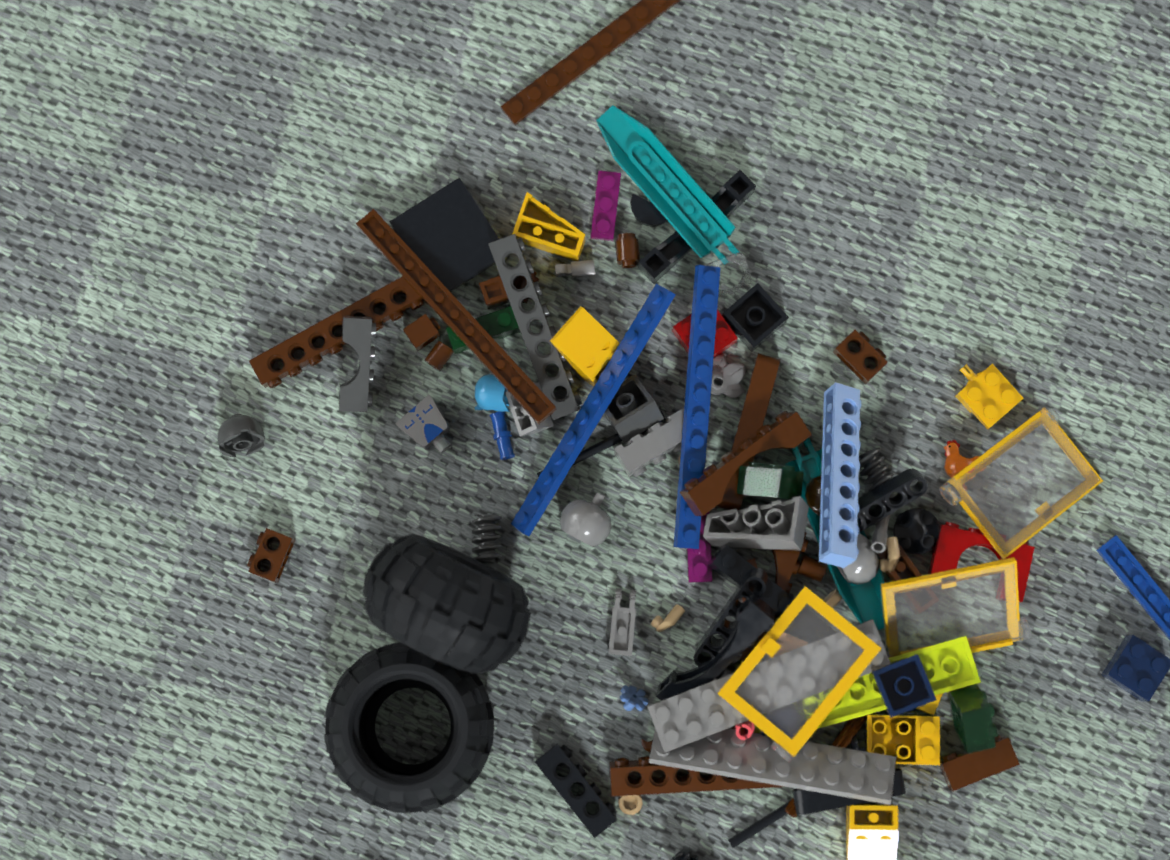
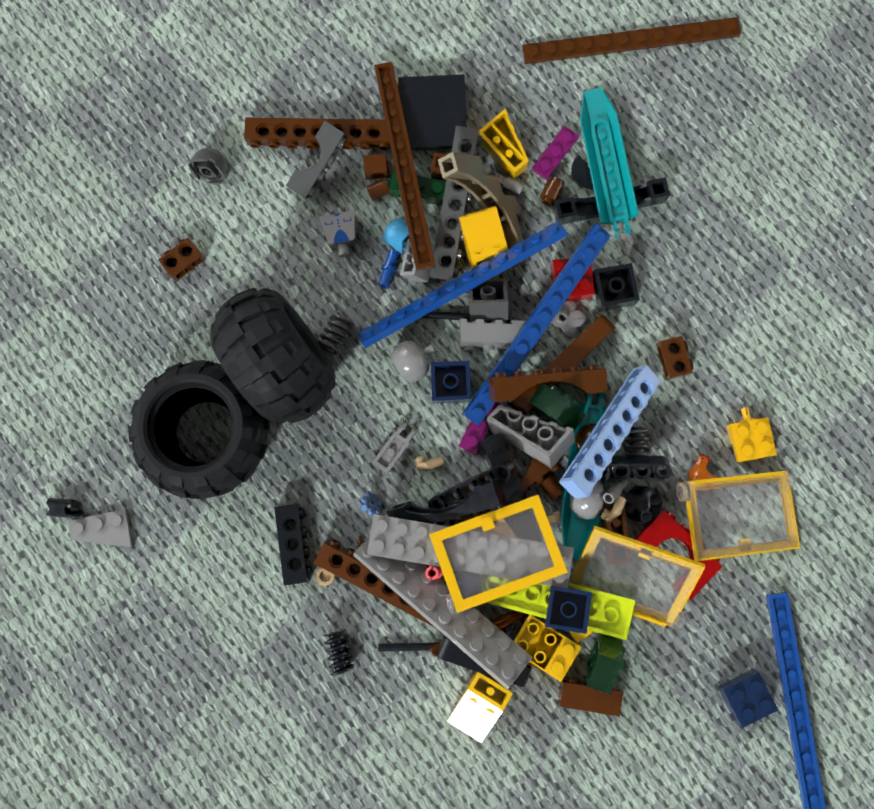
camera: 30 degrees right, 0 degrees up
(536, 289) = (469, 173): none -> dark tan arch
(641, 519) = (450, 382): none -> dark blue brick

